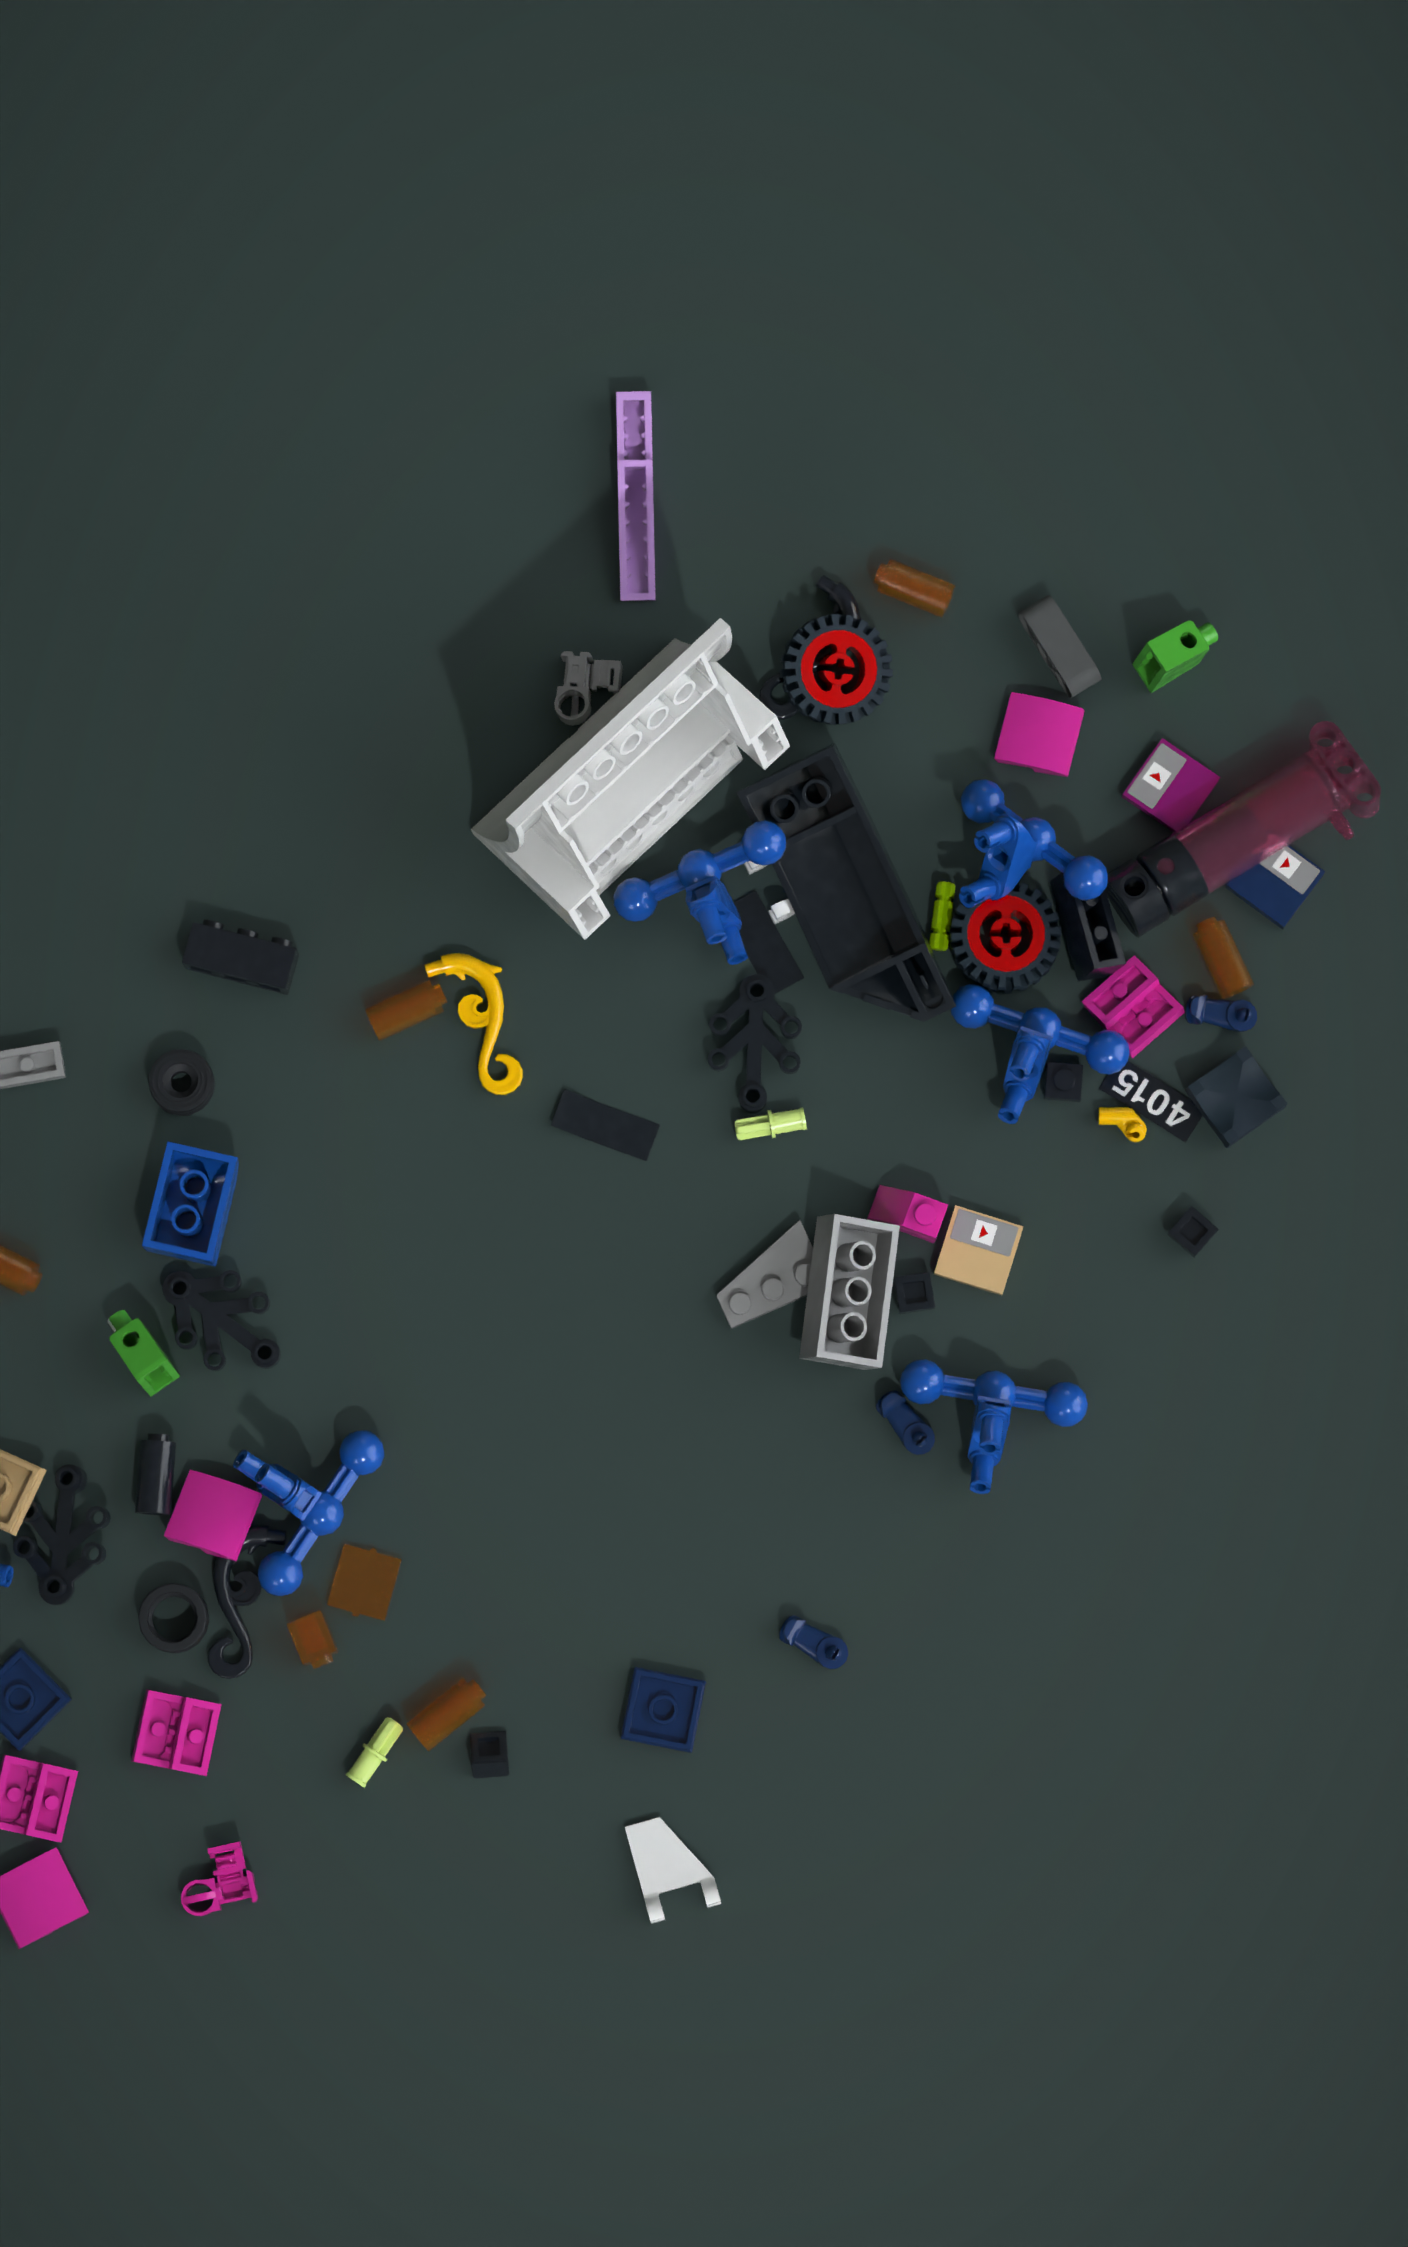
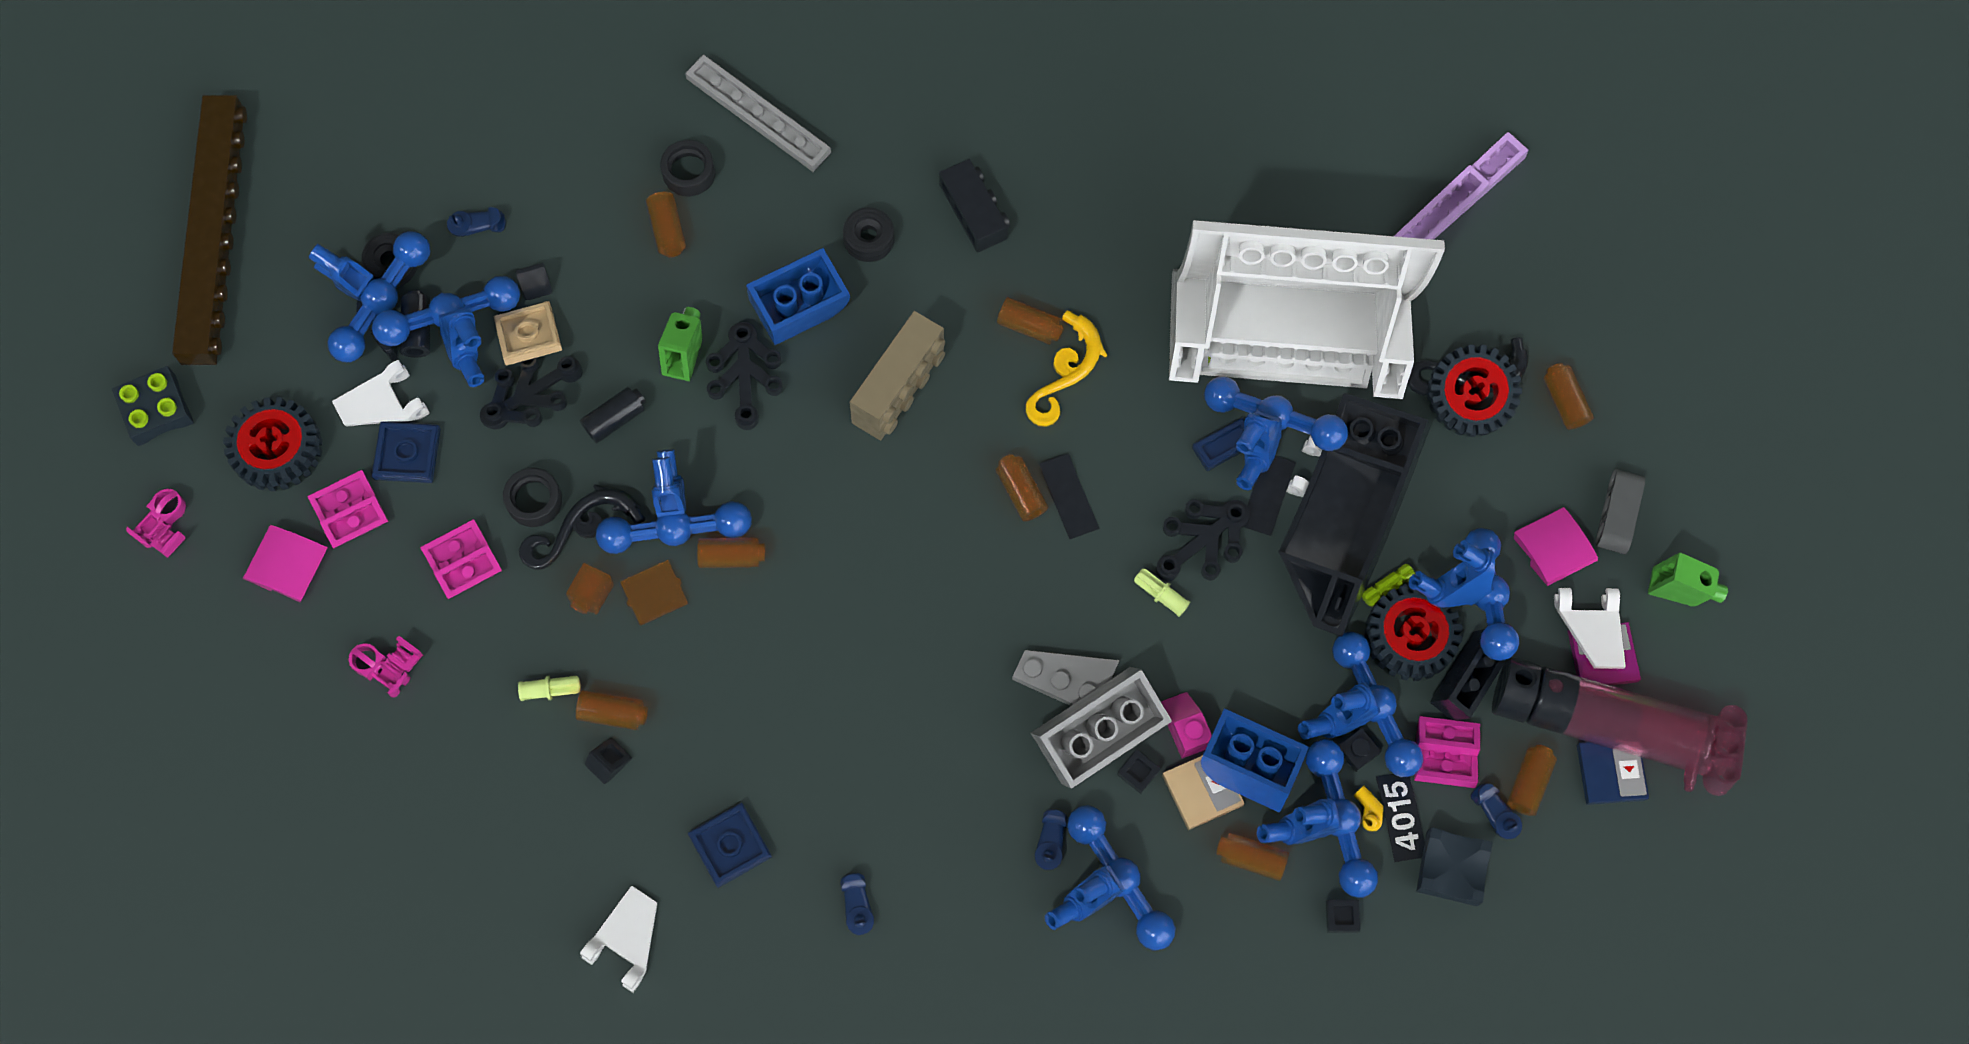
camera: 45 degrees right, 10 degrees down
(213, 1515) = (617, 466): dark pink slope -> none
(356, 1183) = (898, 376): none -> dark tan brick
(390, 1481) = (730, 552): none -> clear orange brick
(561, 1162) = (1021, 487): none -> clear orange brick
(680, 942) = (1219, 446): none -> dark blue tile
(995, 1186) = (1253, 760): none -> blue brick
(1075, 1262) = (1252, 856): none -> clear orange brick
(1107, 1158) = (1327, 817): none -> blue connector
(1144, 774) = (1595, 630): none -> white flag

